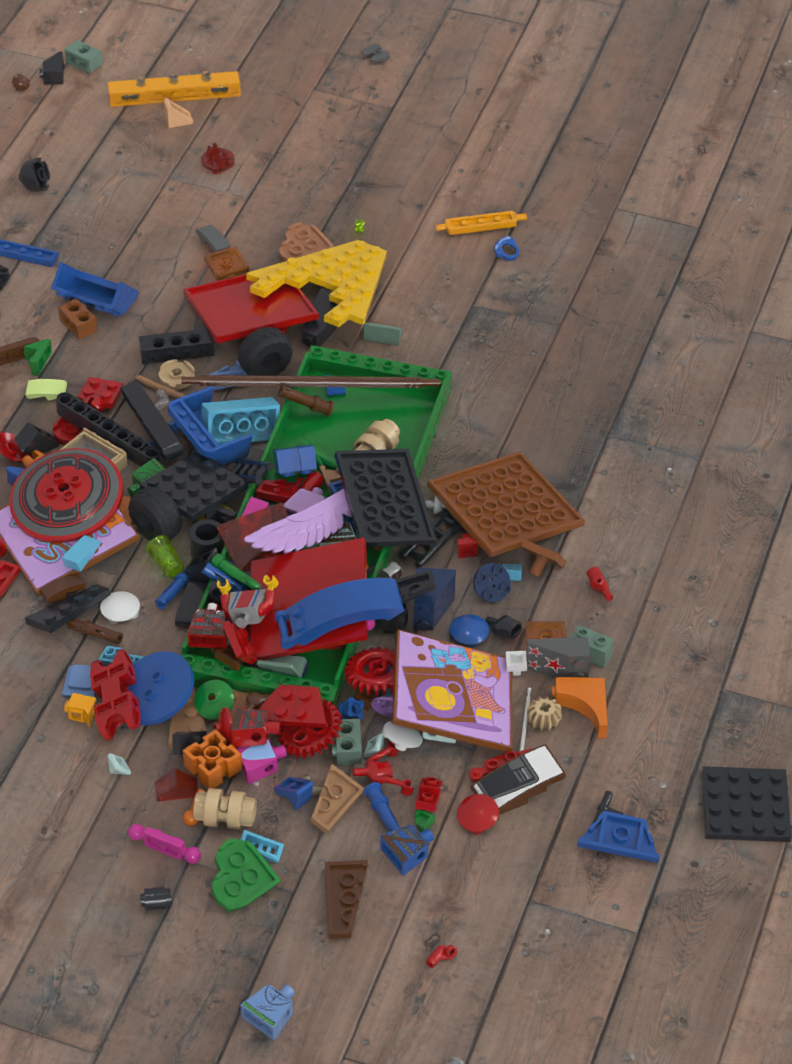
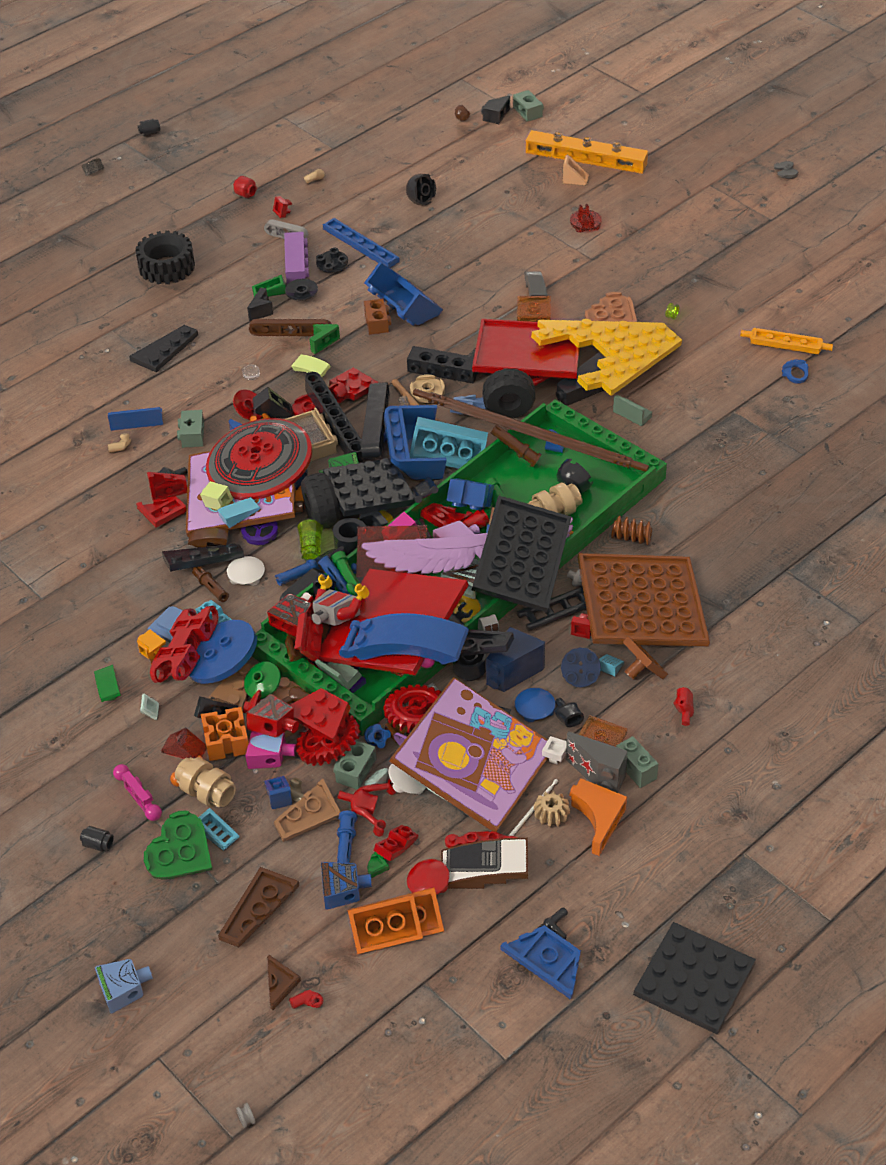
camera: 30 degrees right, 0 degrees up
(49, 545) = (216, 495): none -> yellowish green brick
(63, 758) = (107, 683): none -> green slope
(108, 568) = (260, 533): none -> dark purple tile
(376, 410) = (574, 474): none -> black cylinder
(406, 949) = (281, 981): none -> reddish brown tile
(456, 443) = (632, 530): none -> dark orange piece
(475, 859) = (395, 920): none -> orange slope

